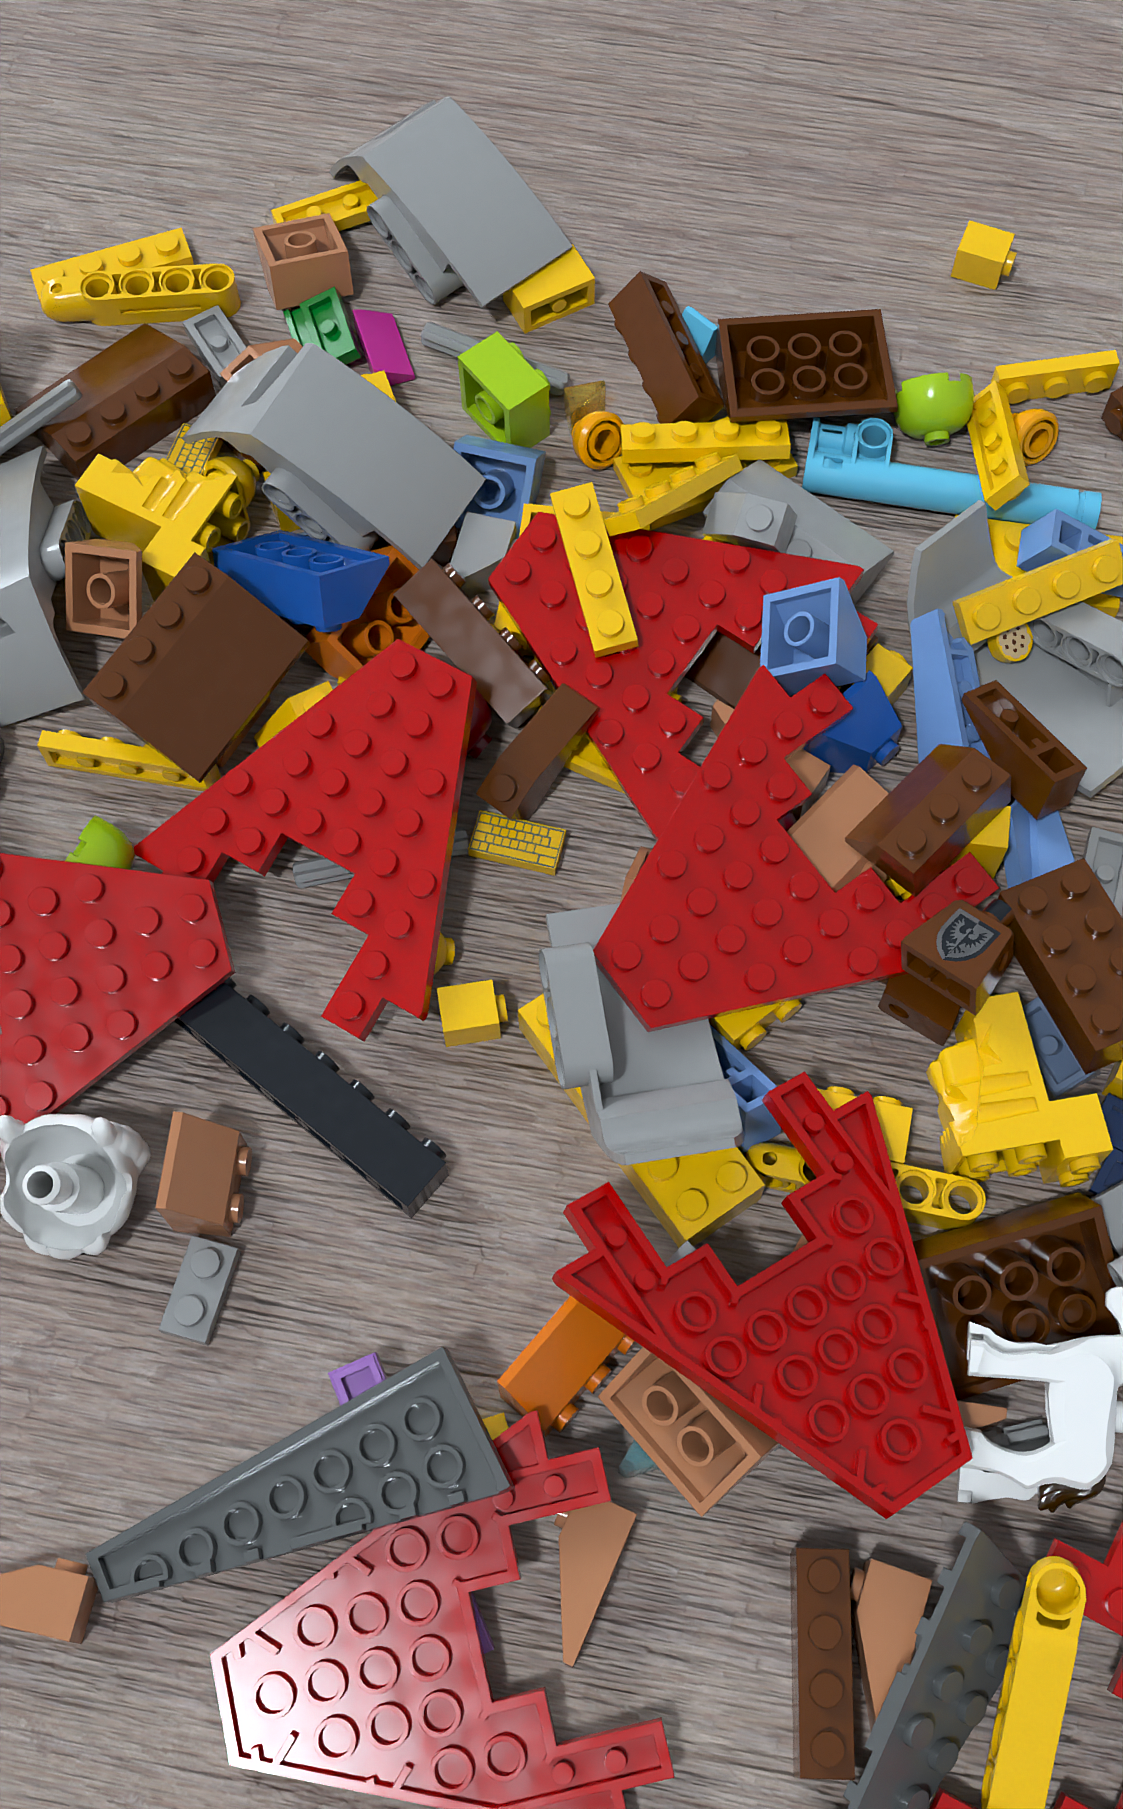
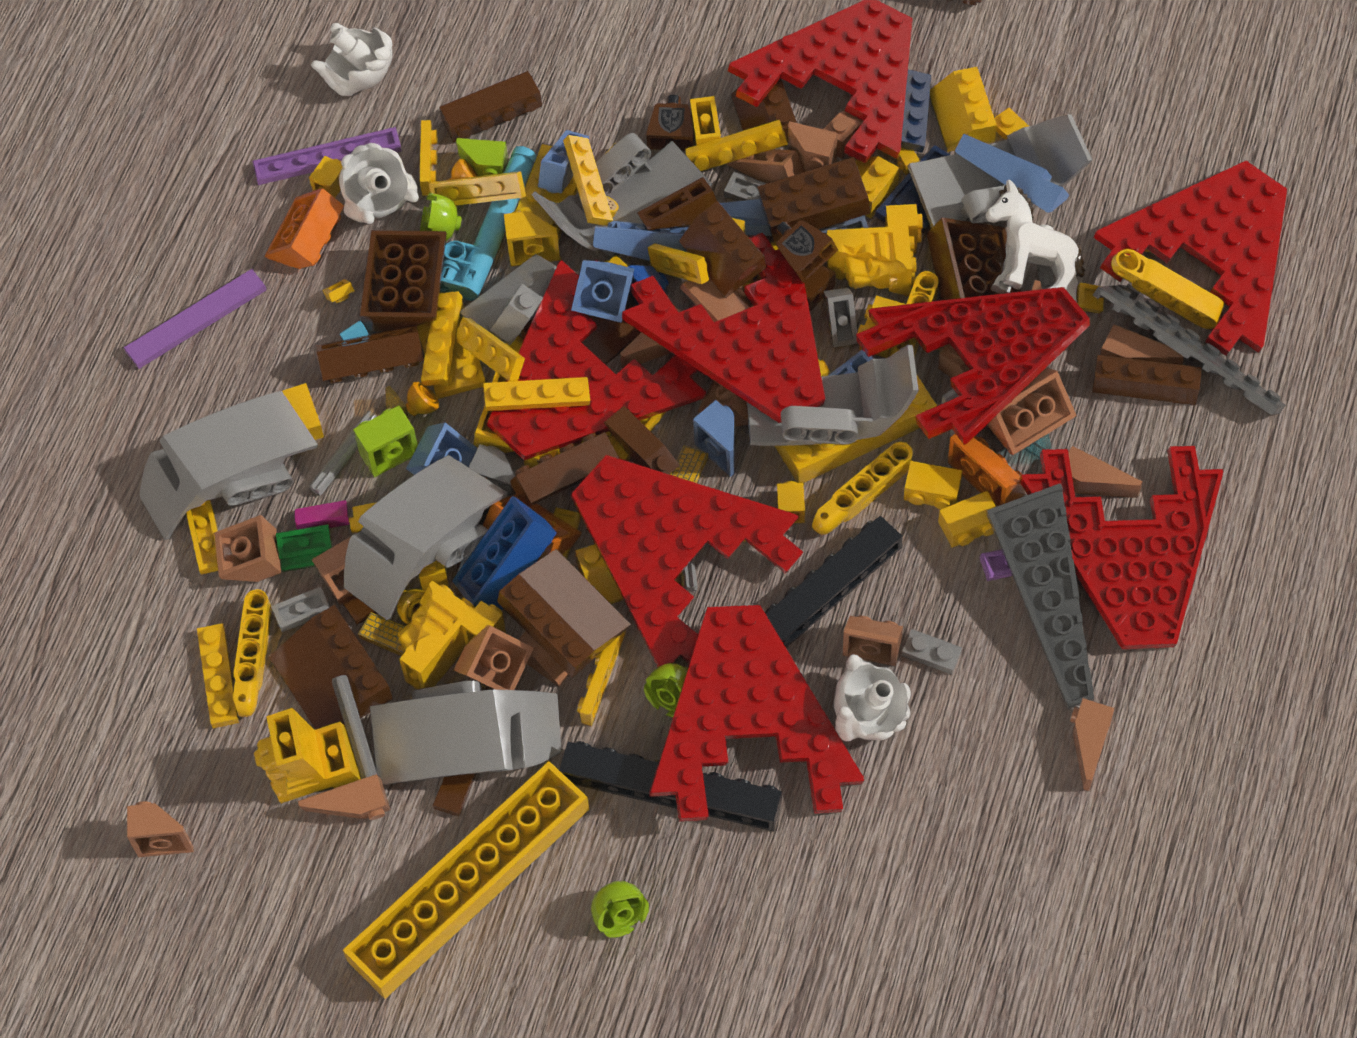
camera: 80 degrees left, 5 degrees down
(453, 1083) = (868, 479): none -> yellow piece
(466, 1327) = (967, 519): none -> yellow brick
(530, 1256) = (932, 485): none -> yellow brick
(574, 873) = (716, 435): none -> medium blue slope
(702, 141) = (195, 318): none -> medium lavender tile
(775, 299) = (339, 291): none -> yellow plate
(869, 1054) = (841, 316): none -> light grey slope
(878, 244) = (305, 229): none -> orange slope
(900, 756) = (678, 263): none -> yellow plate
(910, 517) = (530, 236): none -> yellow slope
(975, 304) = (374, 183): none -> white piece
(1002, 1524) = (1086, 299): none -> yellow plate
(1035, 259) = (307, 159): none -> medium lavender tile
(1073, 454) = (483, 155): none -> lime slope

